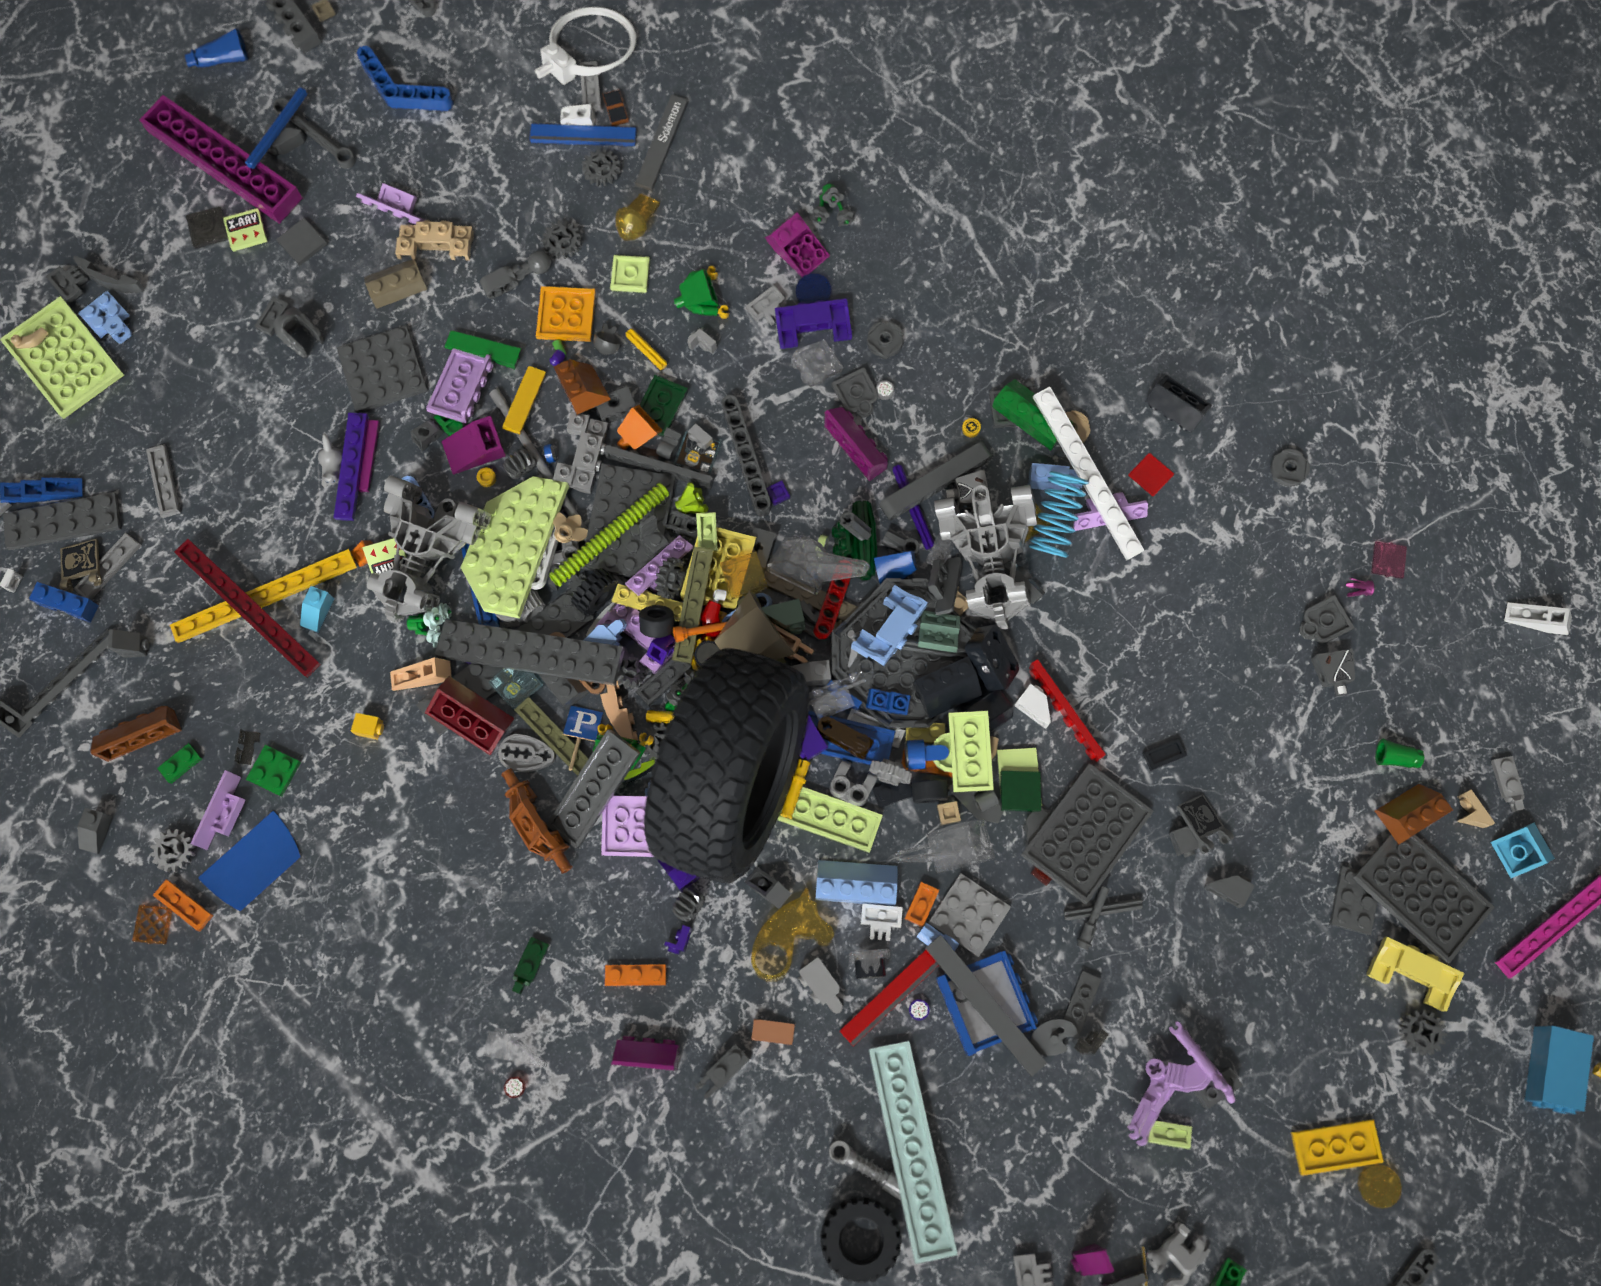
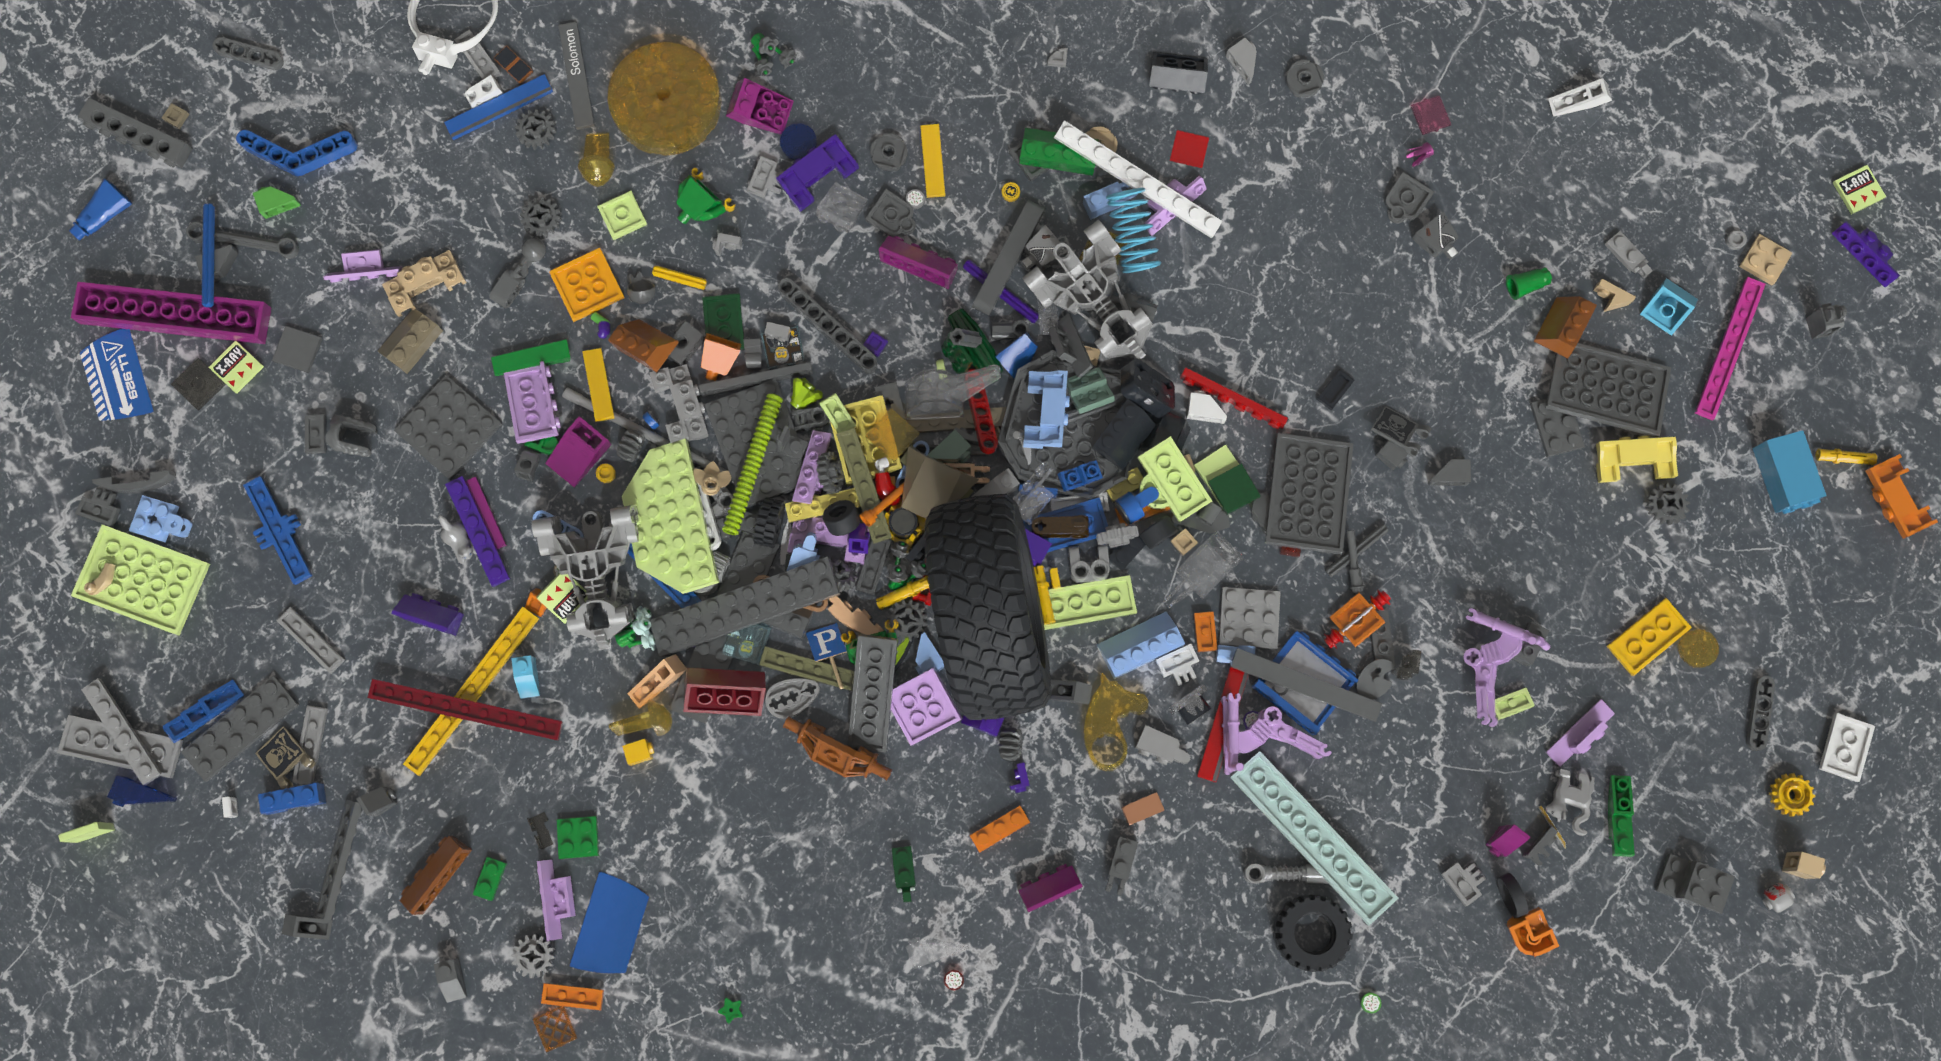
camera: 30 degrees left, 5 degrees up
(148, 188) = (116, 377): none -> blue sticker
(193, 377) = (277, 530): none -> blue hinge
(268, 511) = (429, 613): none -> dark purple slope
(313, 996) = (736, 1010): none -> green plate
(355, 115) = (273, 201): none -> bright green slope
(398, 704) = (656, 717): none -> clear yellow piece
(722, 197) = (671, 73): none -> clear yellow brick
(814, 779) = (1054, 577): none -> yellow tile
(917, 1023) = (1258, 733): none -> lavender piece
(918, 366) = (932, 160): none -> yellow tile
(1067, 972) = (1357, 619): none -> orange plate
(1079, 338) = (1058, 58): none -> light grey tile
(1221, 1201) = (1581, 734): none -> lavender bracket
(1243, 420) = (1243, 58): none -> light grey slope

